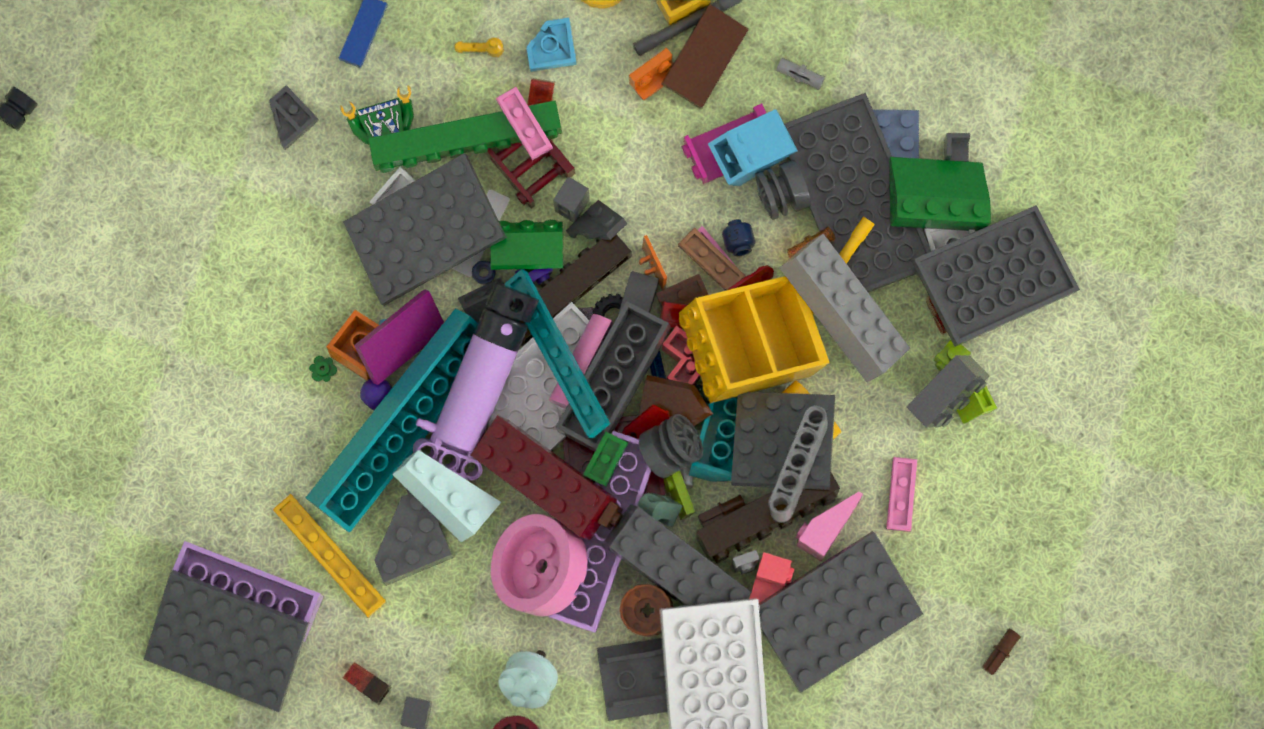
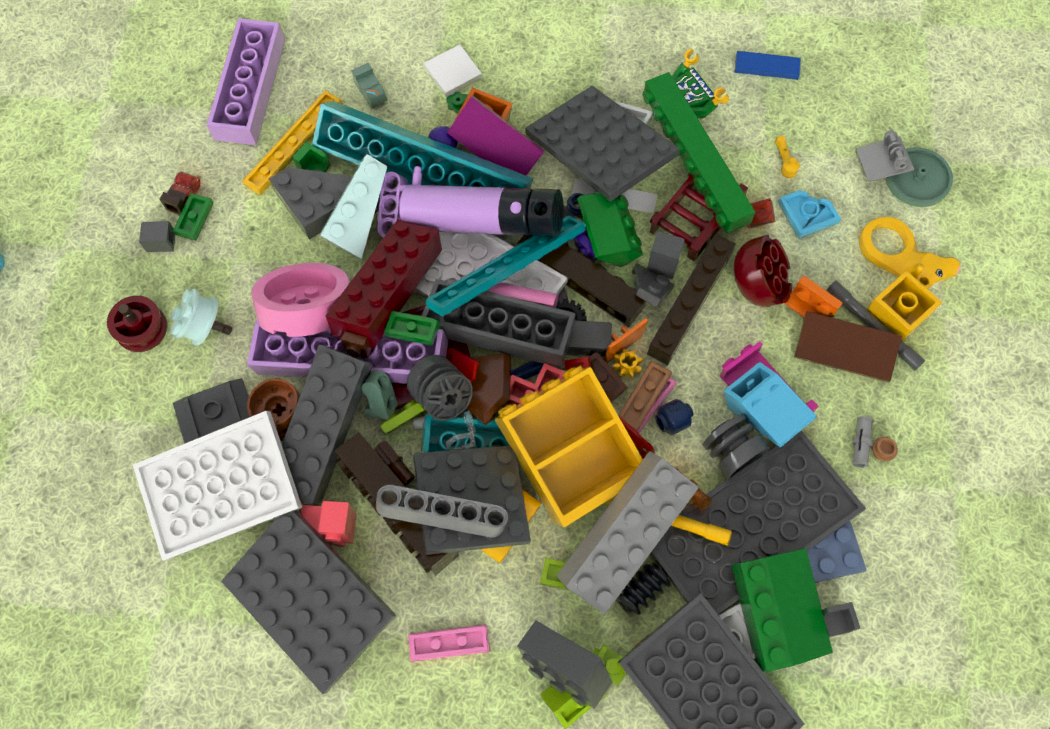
camera: 75 degrees right, 10 degrees down
(226, 641) = (200, 75): dark grey plate -> none
(281, 366) = (453, 70): none -> white tile
(283, 459) = (369, 85): none -> sand green leg
(290, 116) = (672, 28): dark grey wing -> none
(364, 537) = (311, 158): none -> green panel
(399, 674) = (193, 216): none -> green plate
(524, 123) = (723, 189): bright pink tile -> none
(612, 111) = (762, 272): none -> dark red cylinder
(620, 187) = (691, 299): none -> dark brown brick
(680, 266) = (630, 358): none -> yellow gear
(708, 426) = (472, 431): none -> clear piece
(745, 563) = (340, 492): light grey plate -> none
(811, 56) = (884, 449): none -> medium nougat plate
(825, 528) = (383, 562): bright pink slope -> none
(859, 387) = (549, 574): none -> lime plate
(893, 308) = (642, 588): none -> black piece

